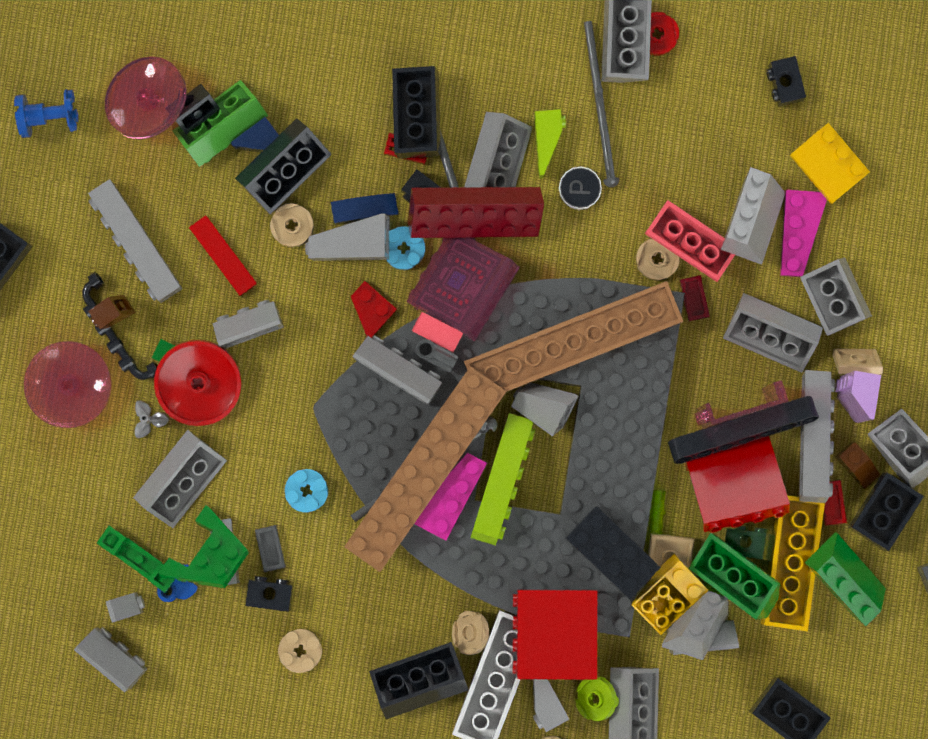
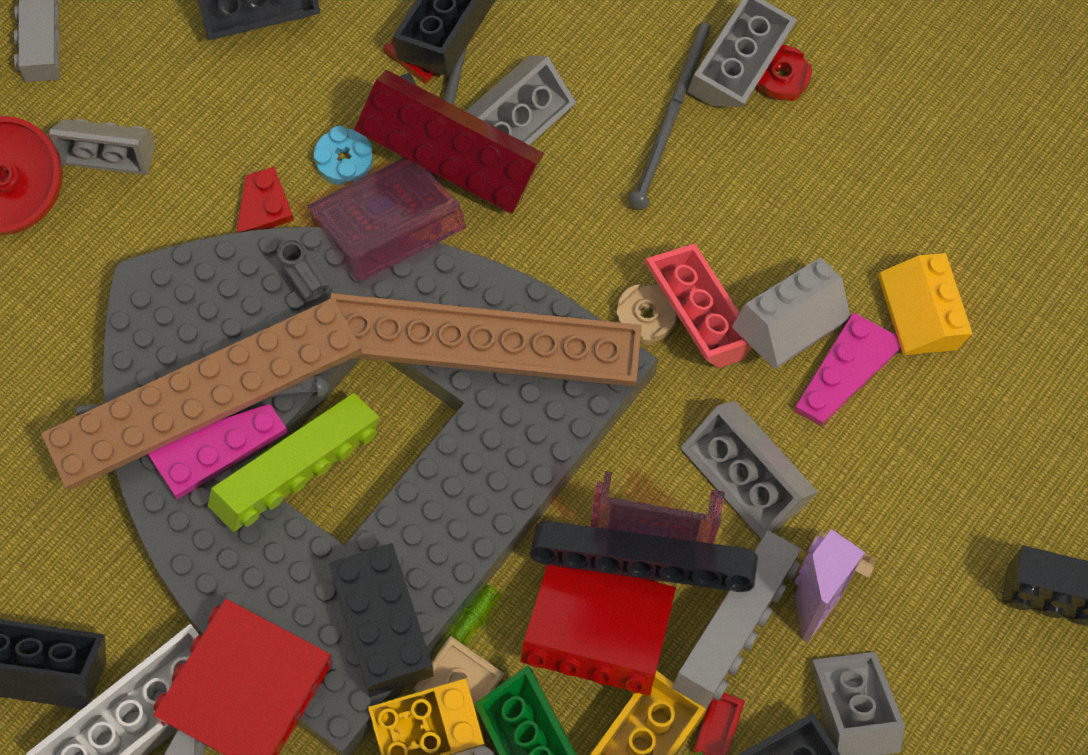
camera: 25 degrees right, 20 degrees down
(223, 255) = (128, 65): red tile -> none
(281, 219) = (228, 84): tan plate -> none
(317, 485) = (47, 349): medium azure plate -> none
(355, 241) = (286, 113): light grey slope -> none
(363, 207) = (320, 89): dark blue slope -> none
(398, 370) = (243, 263): light grey slope -> none
(437, 331) = (320, 246): coral slope -> none
(470, 632) = (137, 639): tan tile -> none
(544, 406) = (403, 406): light grey slope -> none
(548, 132) = (587, 118): lime slope -> none
(580, 188) = (595, 192): black tile -> none
(694, 298) = (668, 383): dark red tile -> none
(761, 545) = (581, 715): clear green brick -> none
(789, 69) = (922, 178): black brick -> none
(836, 296) = (855, 463): light grey slope -> none
(858, 464) = (778, 690): reddish brown slope -> none

